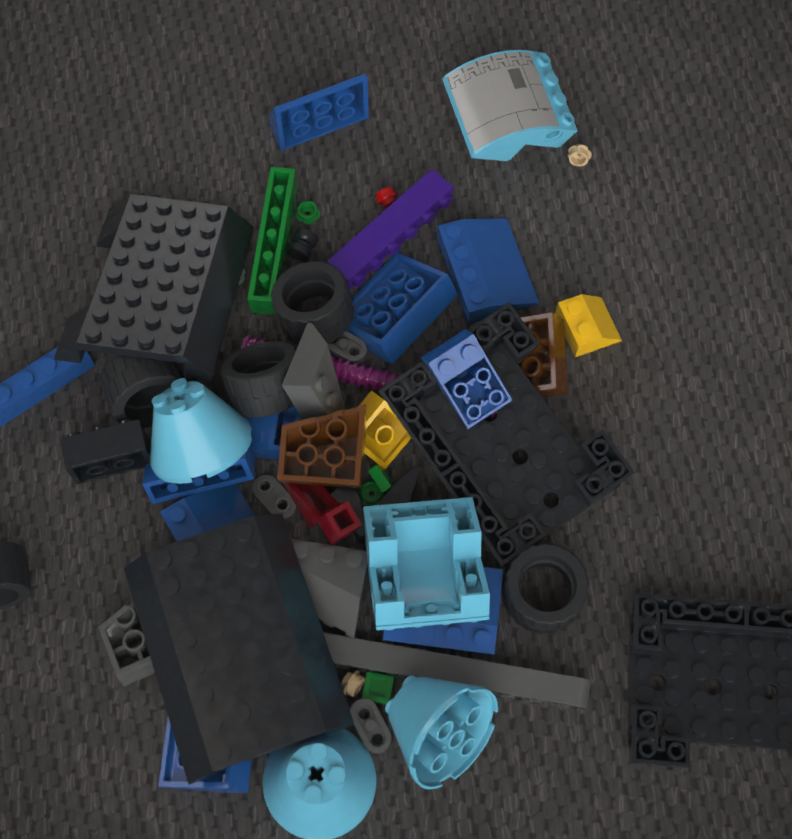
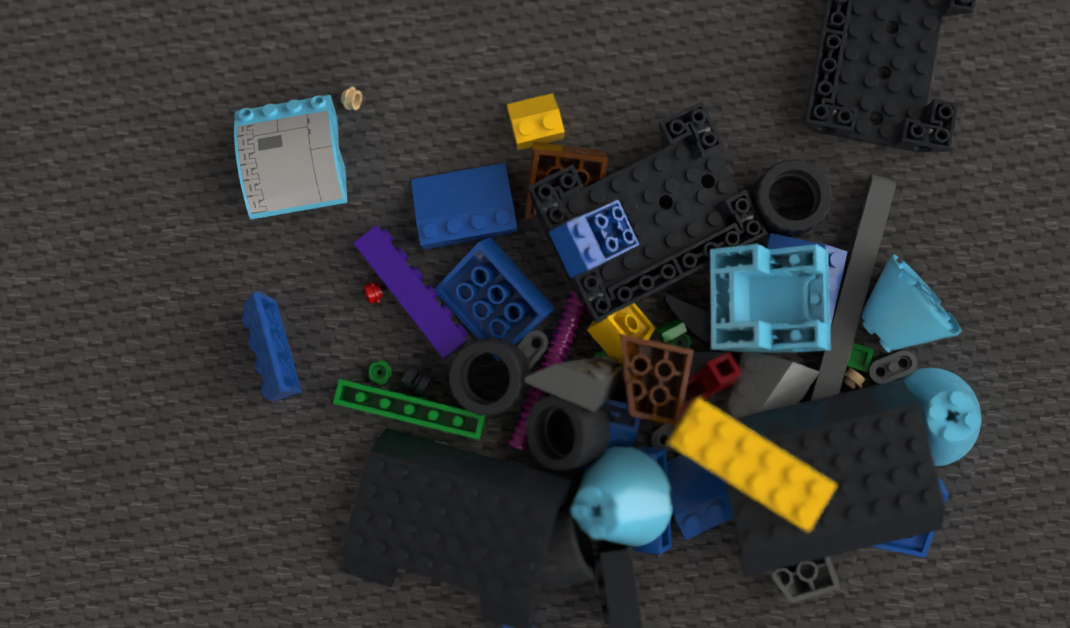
camera: 80 degrees left, 15 degrees up
(239, 540) = (751, 464): none -> yellow brick

